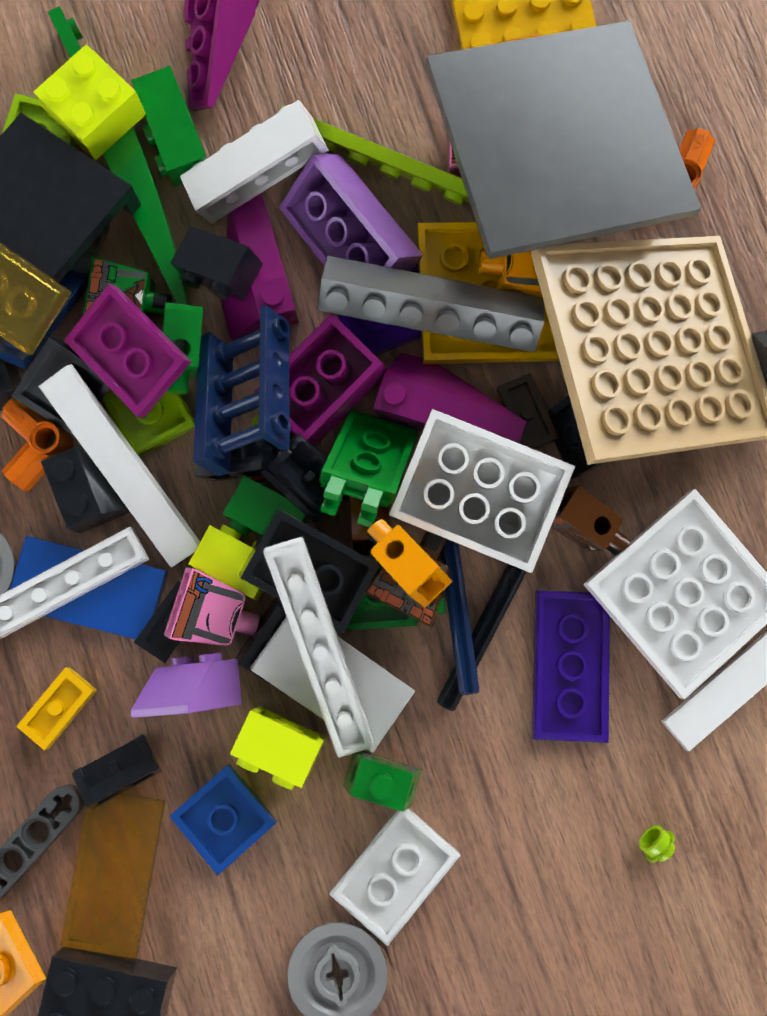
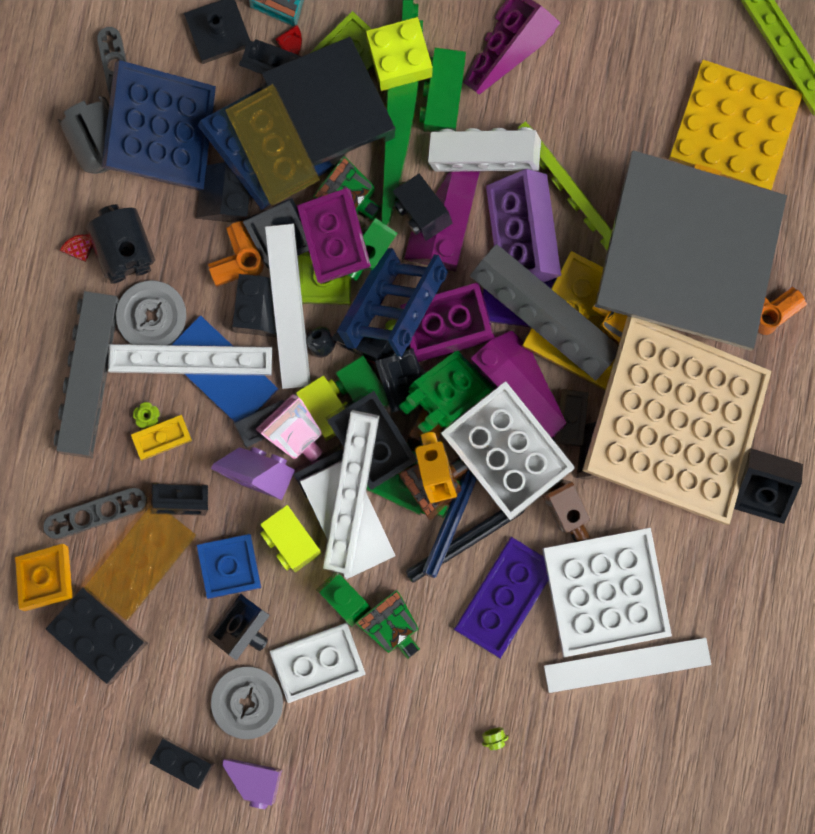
camera: 25 degrees right, 0 degrees up
(31, 683) = (139, 412): none -> lime plate
(185, 488) = (320, 342): none -> black piece
(277, 891) = (240, 627): none -> black tile
(458, 779) = (391, 625): none -> torso

